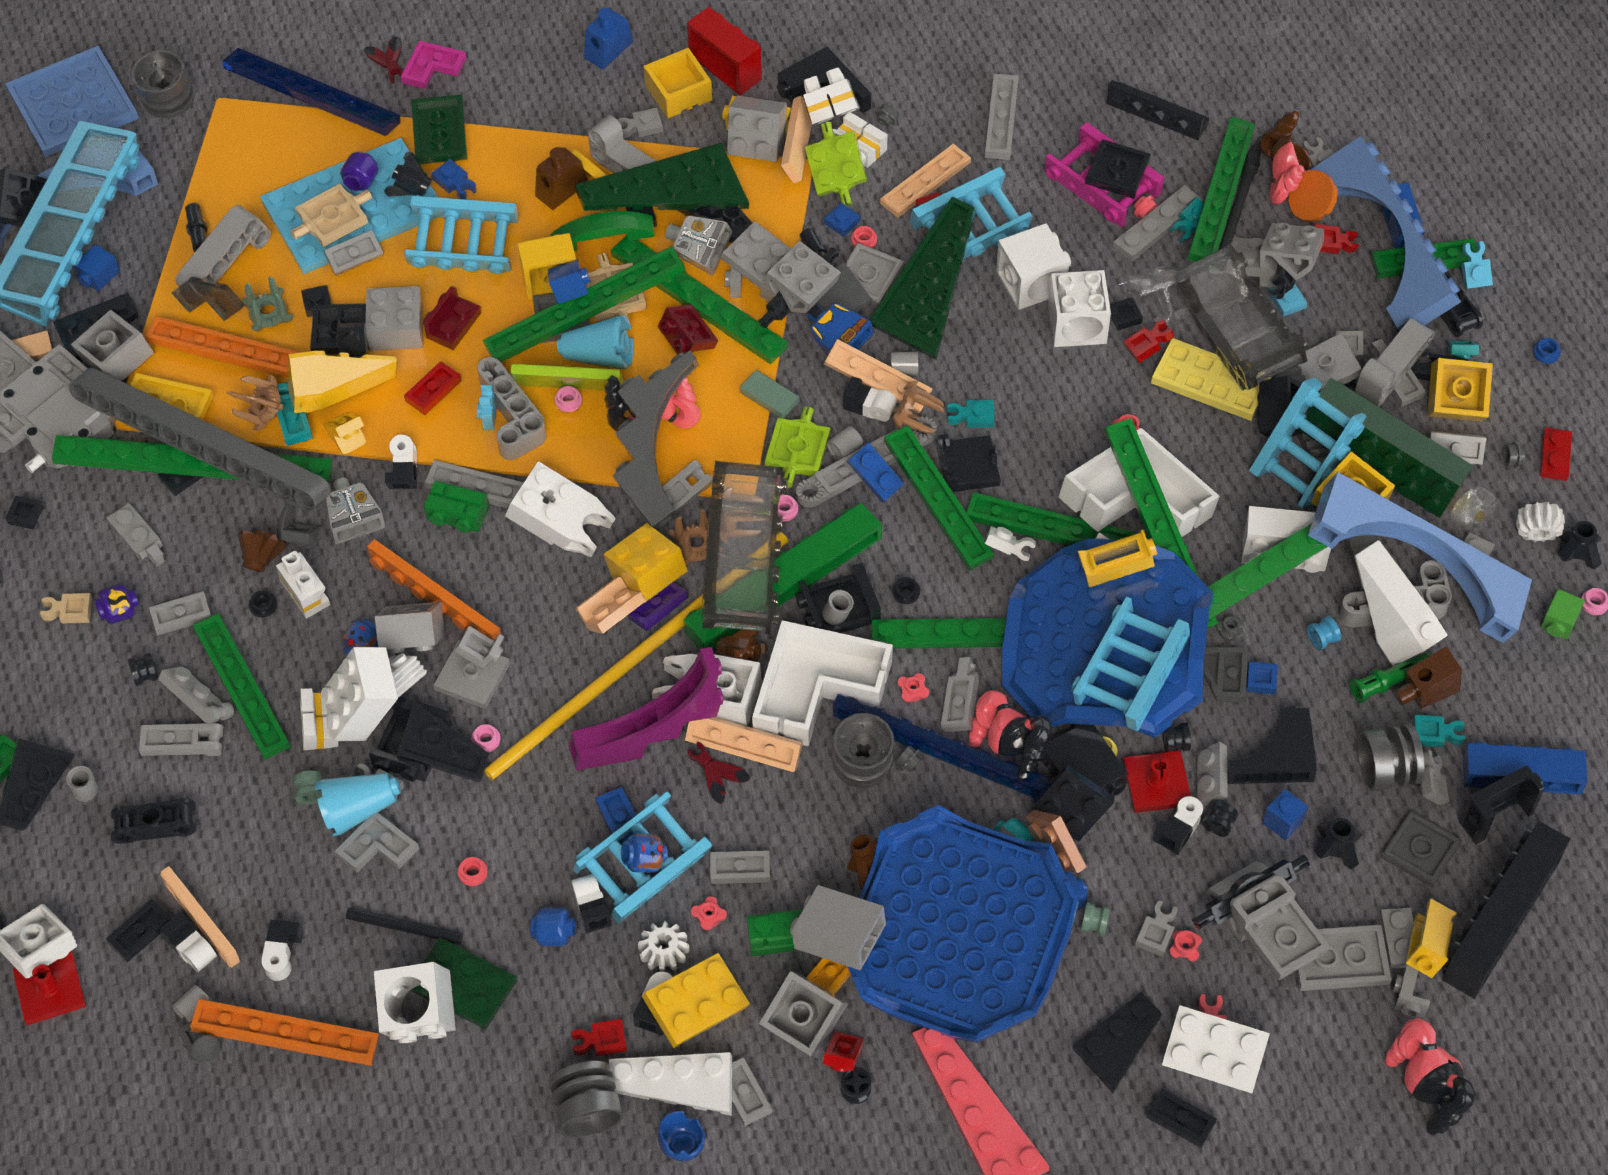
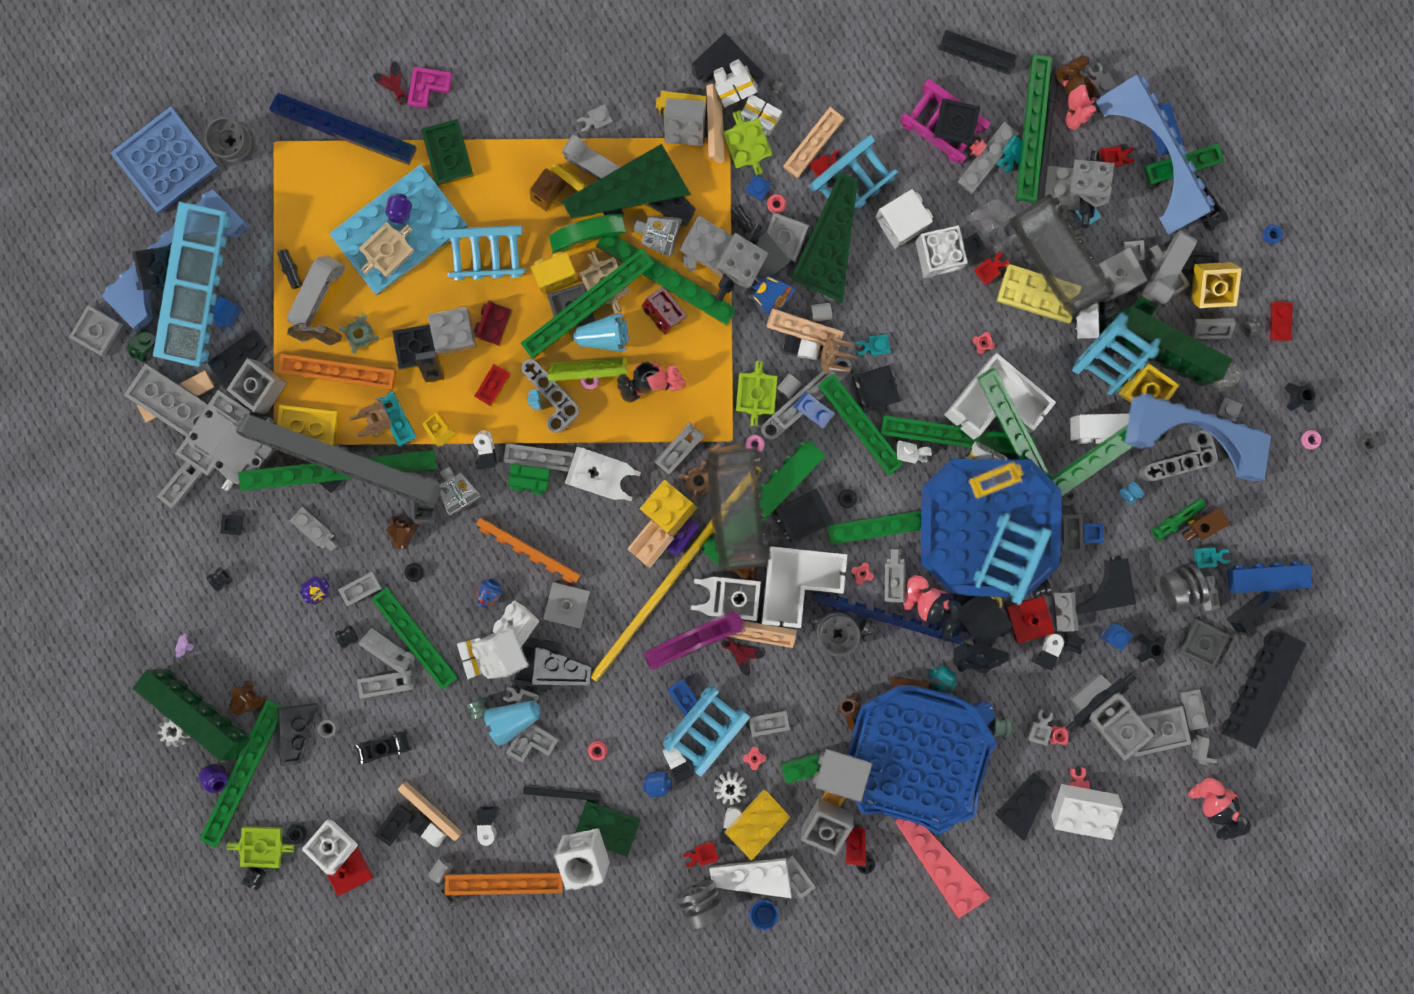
camera: 10 degrees left, 30 degrees up
(71, 608) = (285, 595): tan plate -> none
(302, 584) = (435, 555): white hips -> none
(315, 296) = (392, 319): black plate -> none
(324, 380) = (412, 402): yellow wedge -> none
(353, 252) = (409, 276): light grey plate -> none
(409, 178) = (436, 210): black rock -> none
(410, 626) = (519, 585): light grey brick -> none
(452, 177) = (466, 194): blue plate -> none
(479, 648) = (569, 592): light grey bracket -> none
(486, 731) = (586, 659): bright pink plate -> none
(568, 281) = (573, 290): blue brick -> none
(606, 38) = (557, 45): blue torso -> none
(639, 437) = (654, 446): dark grey arch -> none
(643, 853) = (708, 735): blue head -> none
(678, 82) = (617, 80): yellow piece -> none
(725, 50) = (648, 47): red piece -> none
(769, 394) = (730, 354): sand green tile -> none
(841, 599) = (811, 524): light grey beam -> none
(1001, 116) = (863, 76): light grey plate -> none
(1051, 829) = (972, 687): nougat plate -> none
(1181, 1118) = (1067, 854): black plate -> none
(1314, 196) = (1102, 124): orange tile -> none
(1398, 612) = (1182, 478): white wedge -> none
(1430, 939) = (1215, 717): yellow window -> none
(1462, 348) = (1213, 242): teal plate -> none
(1476, 271) = (1222, 170): medium azure plate -> none
(1540, 522) = (1274, 386): white gear -> none
(1562, 614) = (1290, 456): bright green brick -> none

